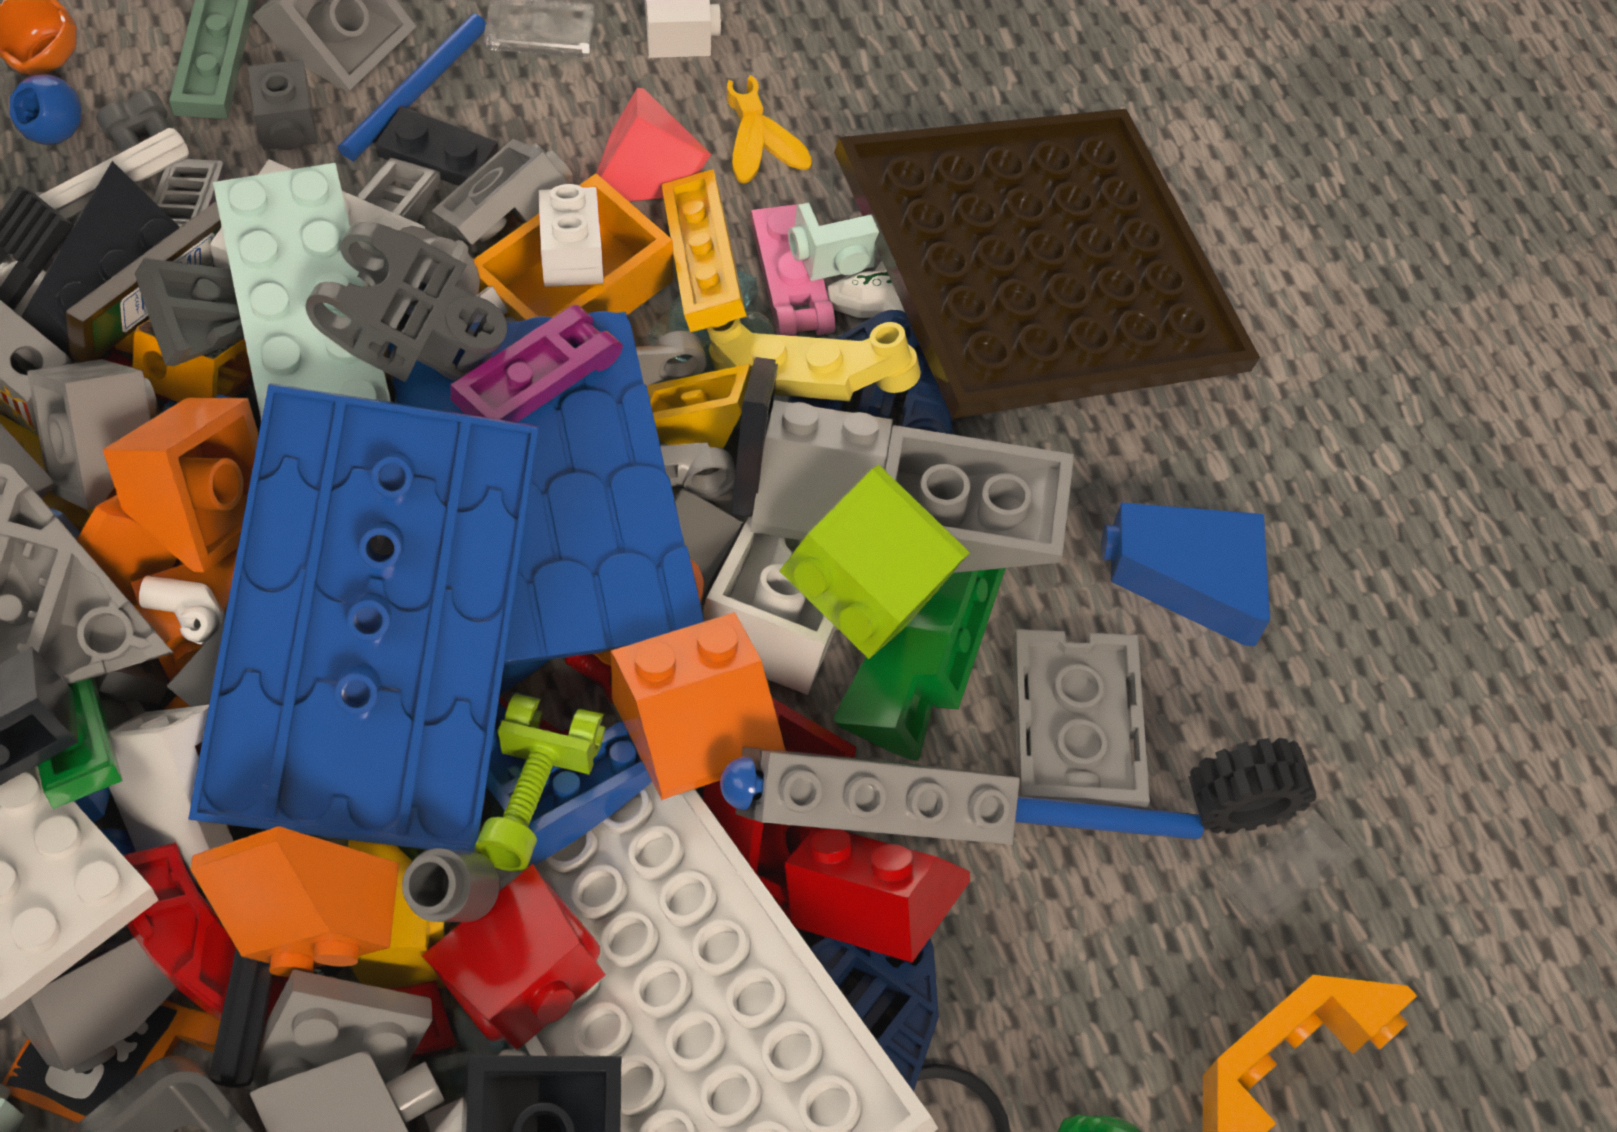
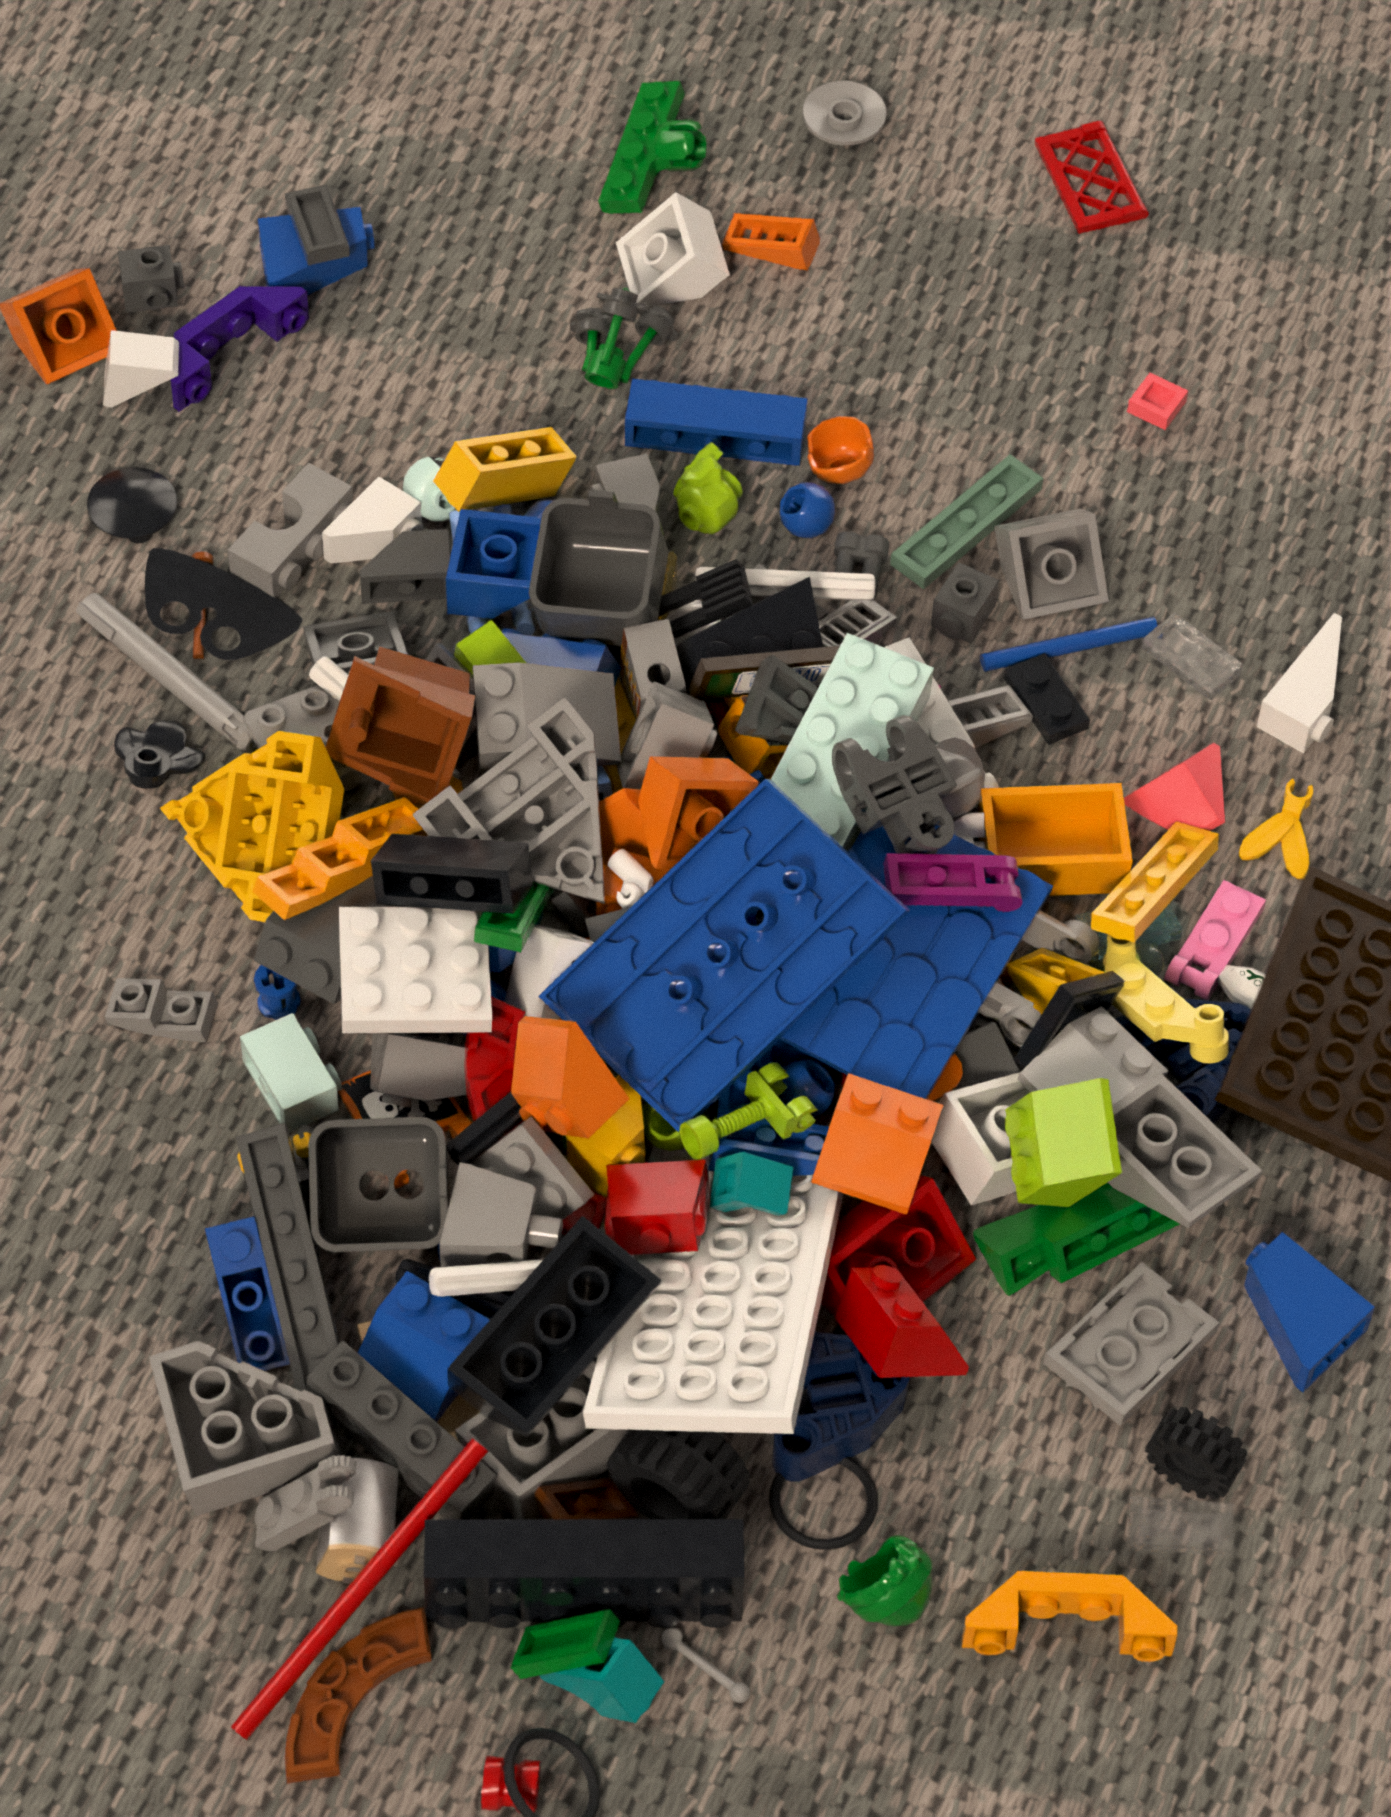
camera: 45 degrees right, 5 degrees down
(451, 885) = (648, 1132): dark grey brick -> none
(499, 187) = (1065, 755): light grey plate -> none
(560, 691) = (808, 1080): none -> blue piece
(570, 236) = (1058, 811): white plate -> none
(602, 854) = (751, 1182): none -> teal panel
(834, 247) = (1244, 939): light aqua bracket -> none
(916, 800) = (970, 1300): light grey piece -> none

